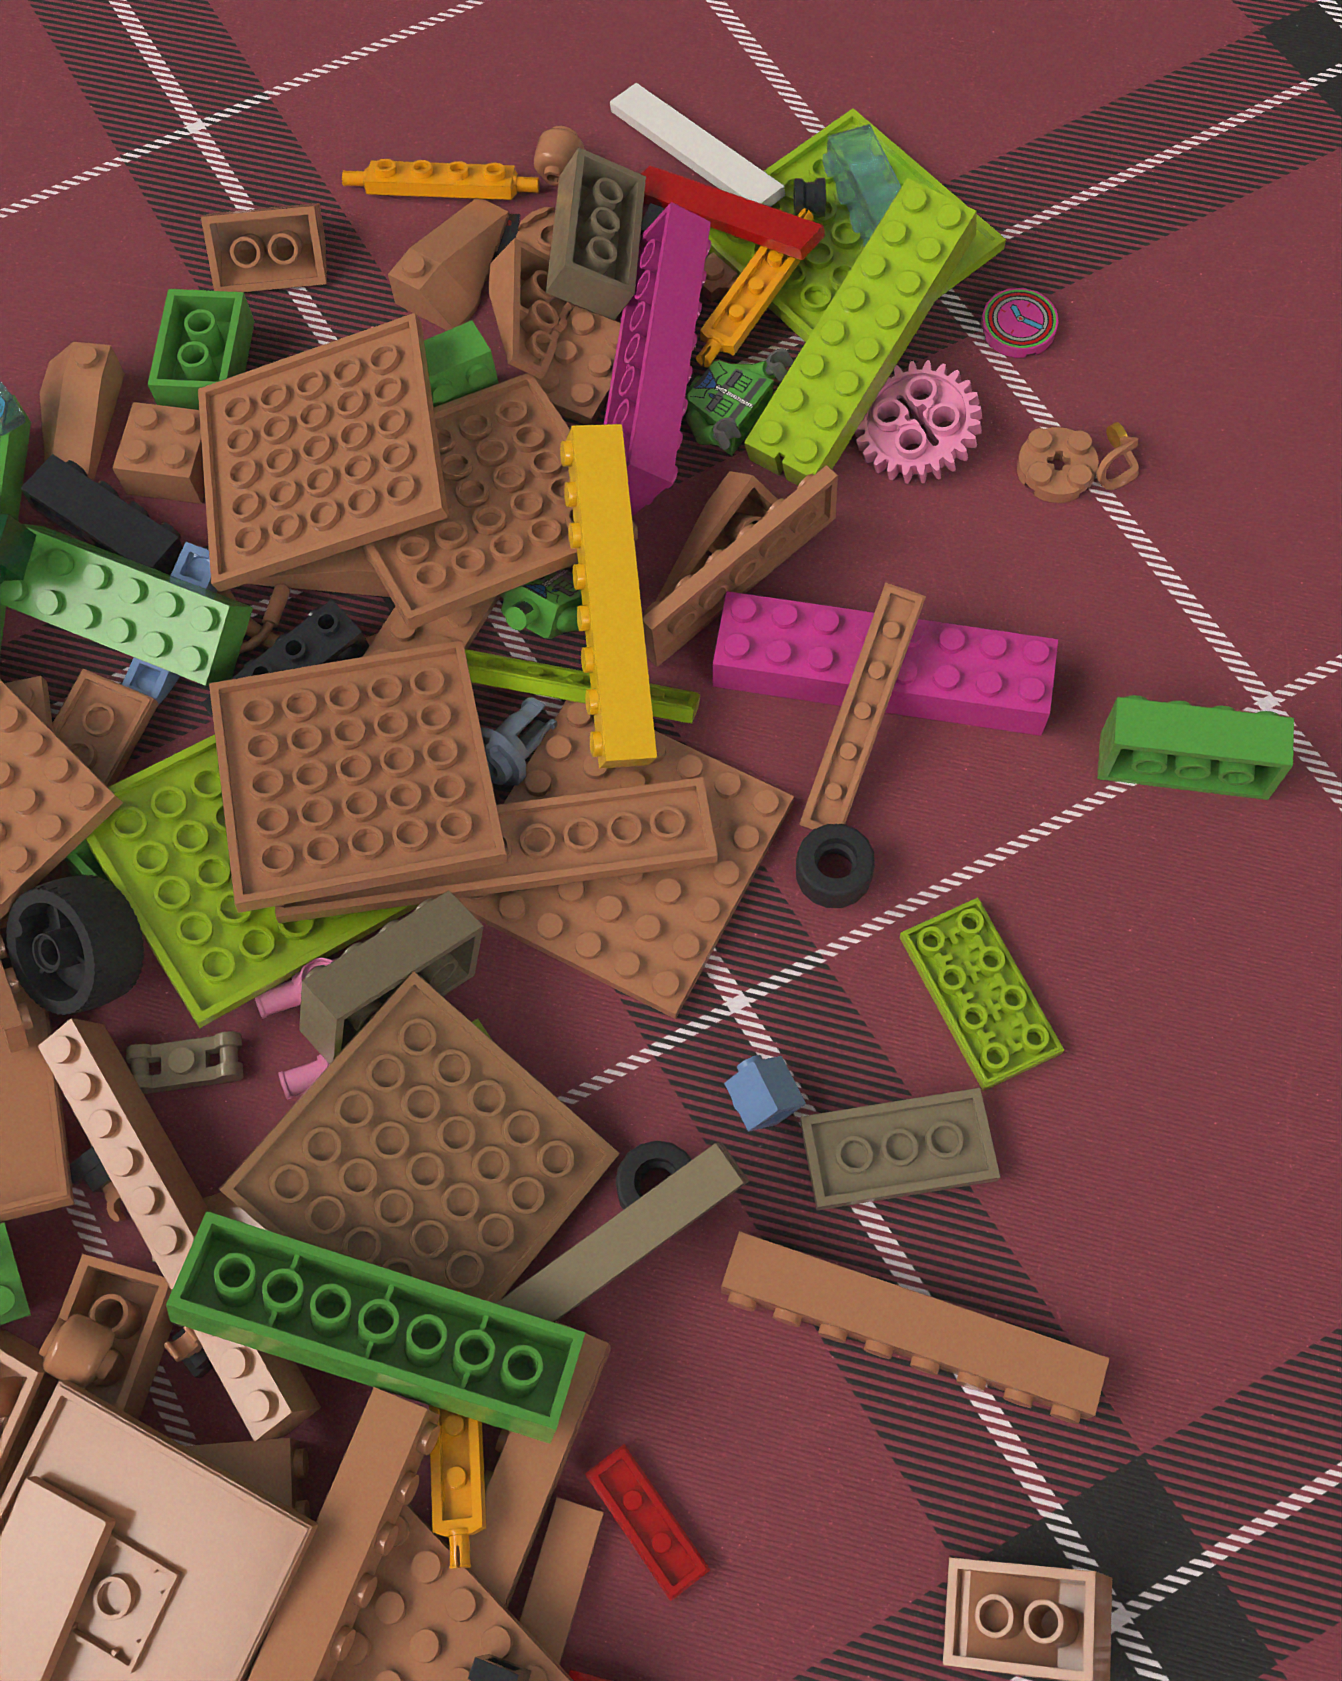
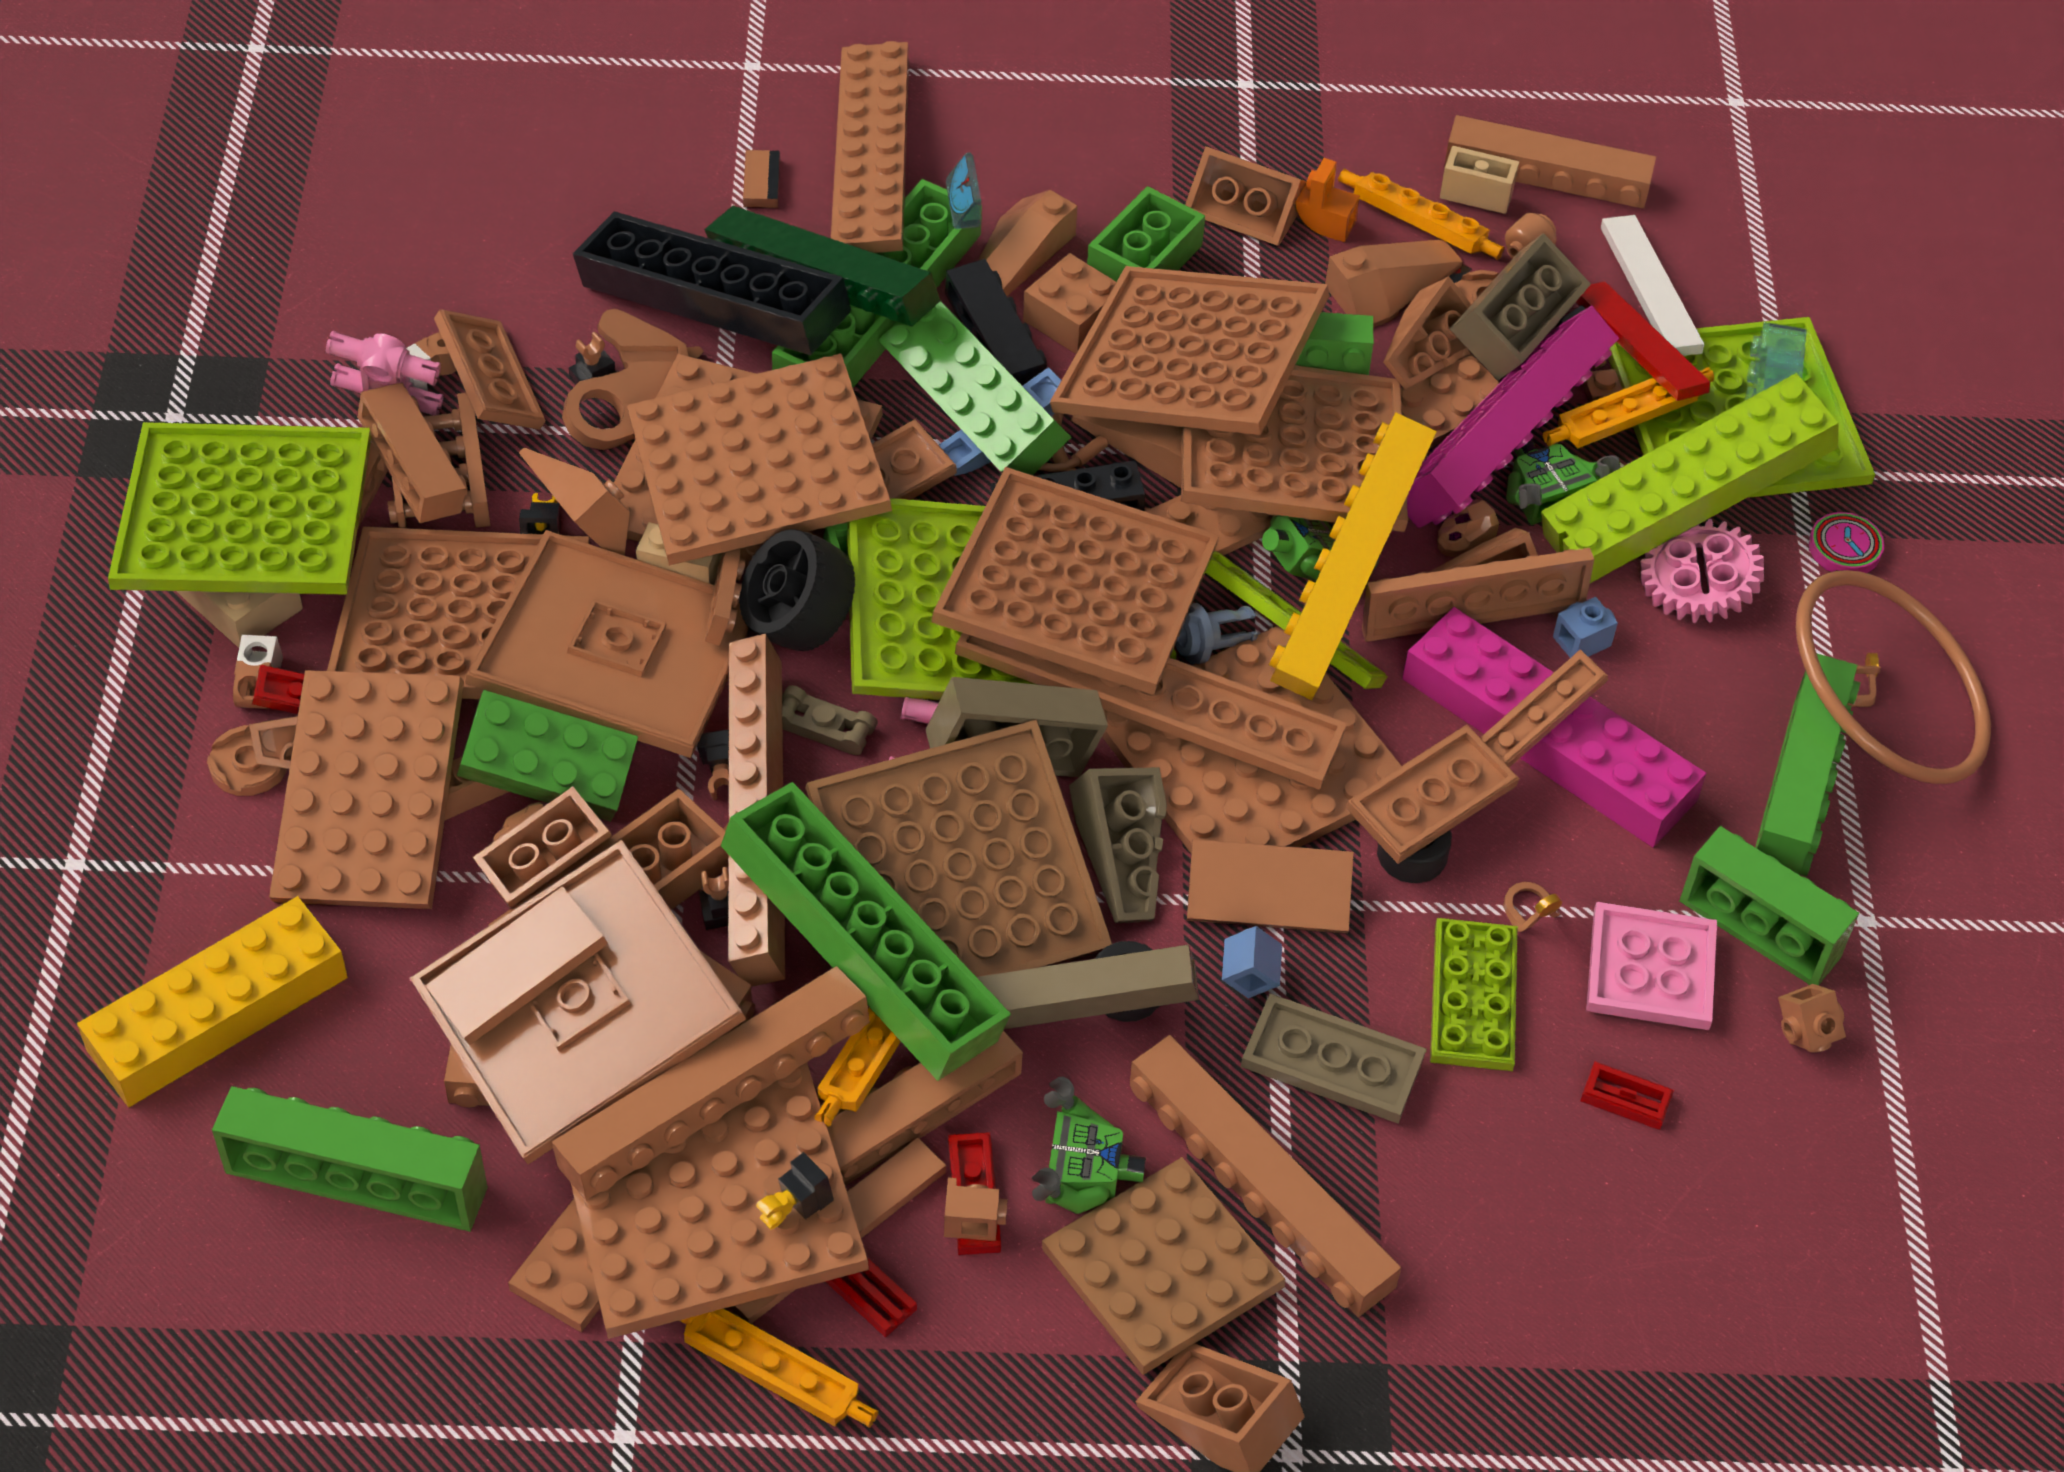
camera: 25 degrees right, 15 degrees down
(79, 1350) = (644, 836): nougat head -> none
(351, 221) = (1326, 208): none -> orange brick
(477, 118) = (1479, 179): none -> tan brick
(528, 66) = (1560, 161): none -> nougat brick
(554, 1021) = (1121, 828): none -> dark tan wedge
(667, 1561) = (973, 1211): none -> nougat brick
(682, 501) = (1467, 529): none -> nougat rock
(730, 995) = (1270, 886): none -> nougat tile
(735, 1421) = (1083, 1155): none -> torso
(810, 196) = (1721, 361): black wheel -> none
(829, 811) = (1432, 793): none -> nougat plate
(850, 541) = (1585, 627): none -> medium blue brick
(877, 1489) = (1163, 1265): none -> medium nougat plate
(967, 886) = (1547, 906): none -> nougat piece
(1061, 444) = (1784, 657): nougat plate -> none
(1121, 867) = (1652, 966): none -> bright pink plate
(1124, 495) = (1847, 721): none -> nougat piece
(1137, 581) = (1806, 770): none -> bright green brick
(1143, 1025) = (1625, 1100): none -> red tile
(1297, 841) = (1812, 1018): none -> nougat brick

